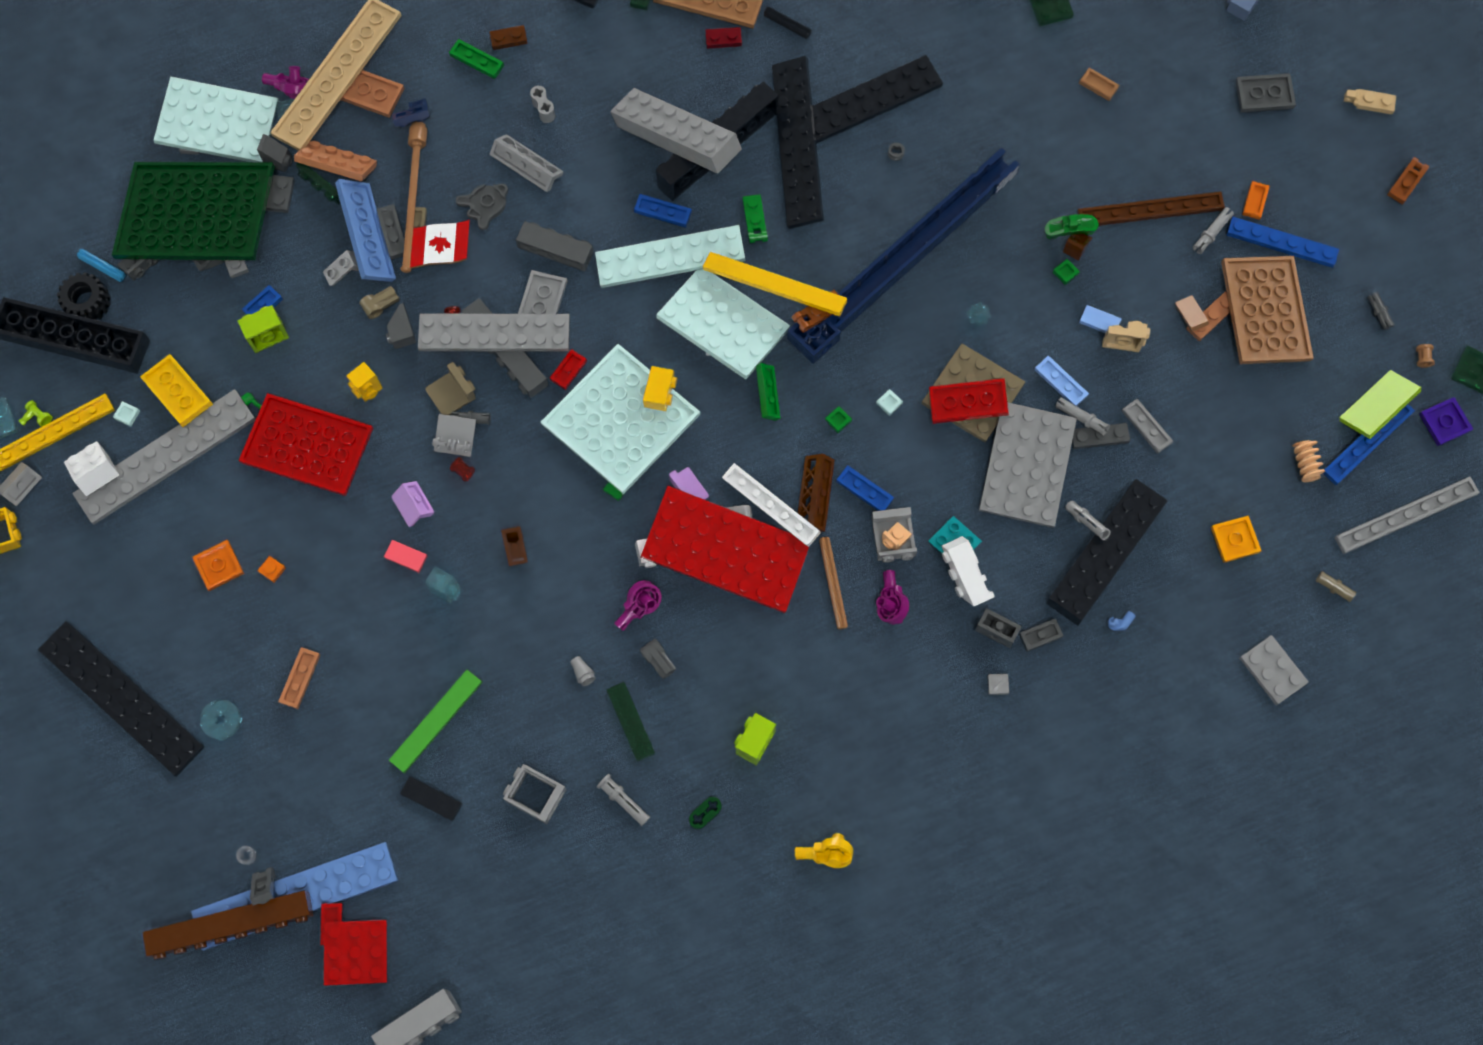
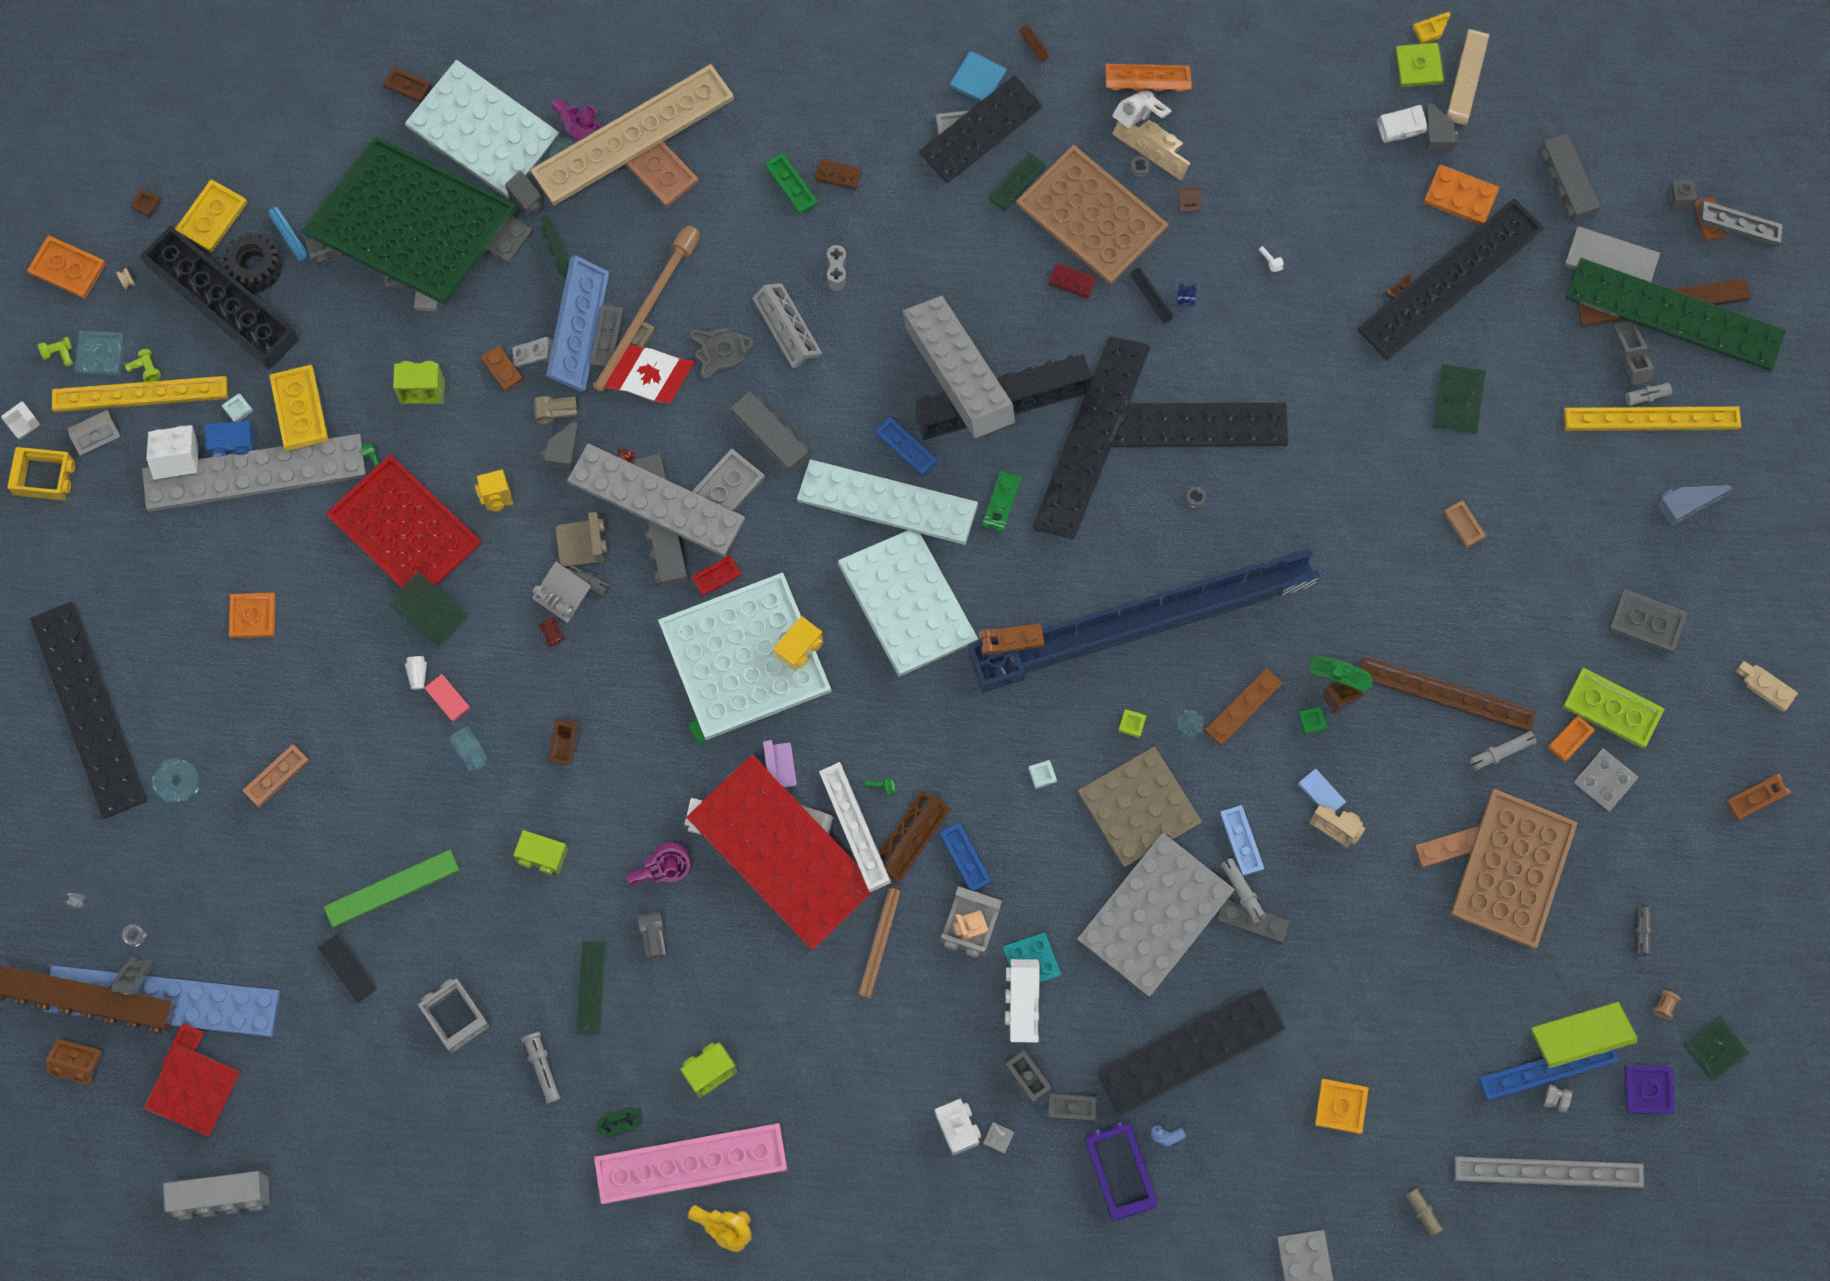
camera: 25 degrees right, 0 degrees up
(32, 277) = (211, 216): none -> yellow plate
(132, 438) = (229, 438): none -> blue brick
(140, 114) = (407, 85): none -> reddish brown plate
(185, 850) = (75, 900): none -> clear bush
(246, 977) = (73, 1061): none -> dark orange bracket
(265, 298) = (437, 351): blue plate -> none
(271, 569) = (304, 646): orange plate -> none
(322, 291) = (502, 368): none -> dark orange plate
(335, 160) = (584, 231): nougat plate -> none
(356, 496) = (428, 609): none -> clear green plate
(371, 547) = (416, 671): none -> white cone
(412, 502) = (482, 644): lavender panel -> none
(417, 111) = (696, 217): dark blue plate -> none
(539, 638) = (540, 852): none -> lime brick
(582, 671) = (568, 912): light grey cone -> none
(768, 392) = (916, 701): green plate -> none
(775, 283) = (979, 587): yellow tile -> none
(776, 817) = (690, 1163): none -> bright pink plate
(779, 463) = (888, 784): none -> green hand
(813, 10) = (1186, 294): none -> clear blue wheel
(838, 419) = (976, 767): green plate -> none
(892, 601) = (930, 992): magenta pin -> none
(936, 334) = (1132, 723): none -> lime plate
(964, 690) = (957, 1126): none -> white brick
(968, 401) = (1125, 814): red tile -> none
(1010, 285) = (1243, 707): none -> dark orange plate
(1075, 509) = (1184, 1001): light grey pin -> none
(1095, 681) = (1131, 1209): none -> dark purple window
(1147, 426) = (1311, 935): light grey tile -> none
(1191, 313) = (1426, 833): tile -> none
(1274, 164) = (1613, 708): none -> lime plate
(1282, 242) = (1575, 800): blue plate -> none
(1297, 216) = (1606, 779): none -> light grey hinge
(1307, 460) = (1468, 1059): light nougat piece -> none
(1386, 458) = (1557, 1098): none -> light grey wheel

